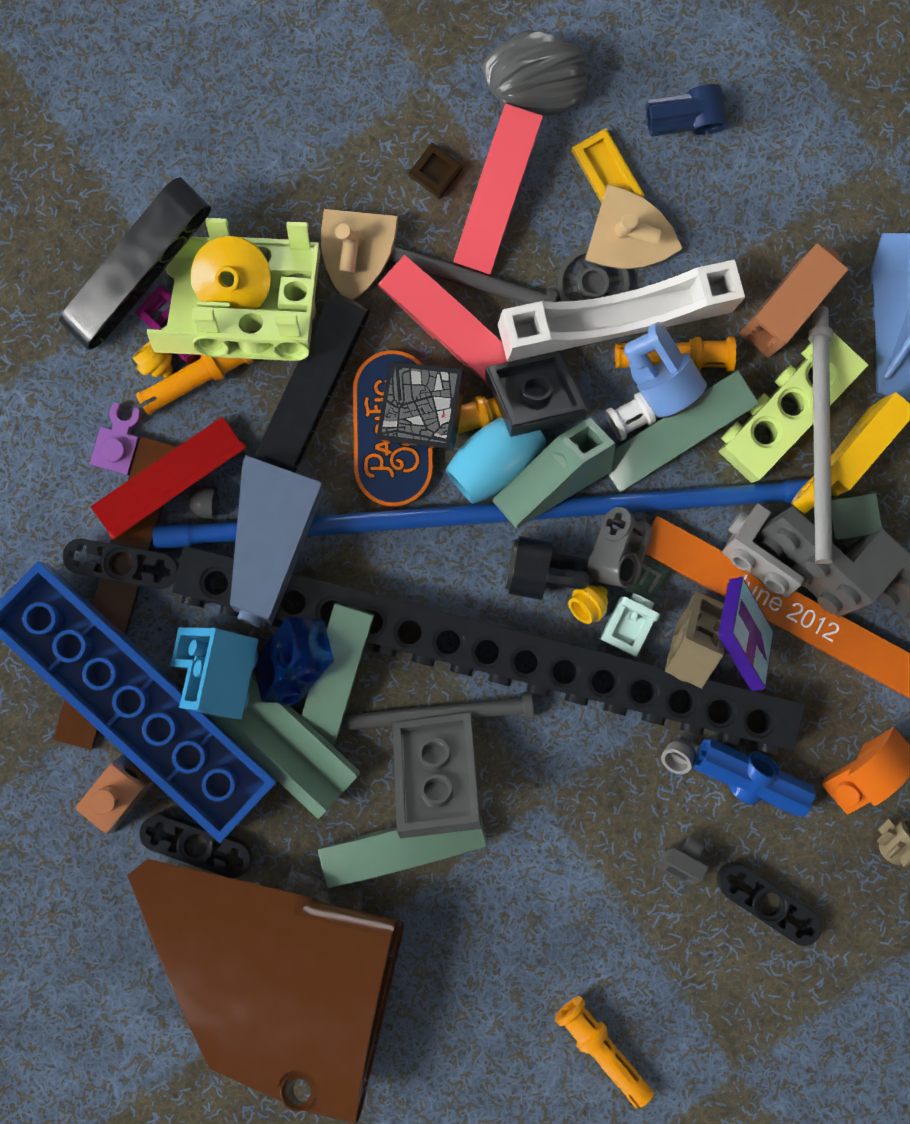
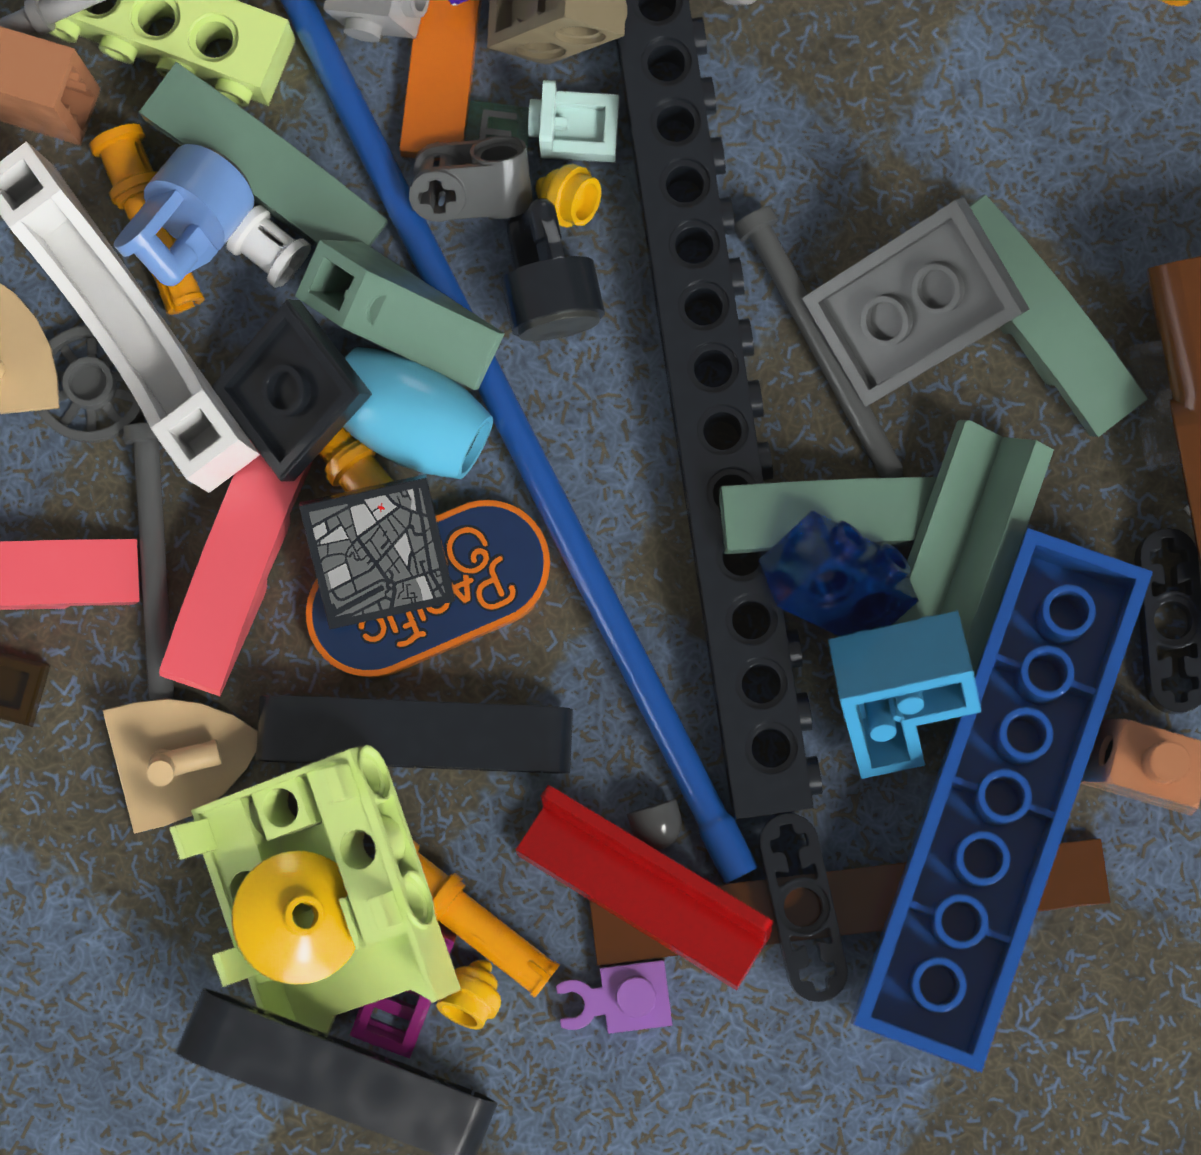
camera: 105 degrees left, 5 degrees down
(270, 534) = (659, 690): sand blue slope -> none

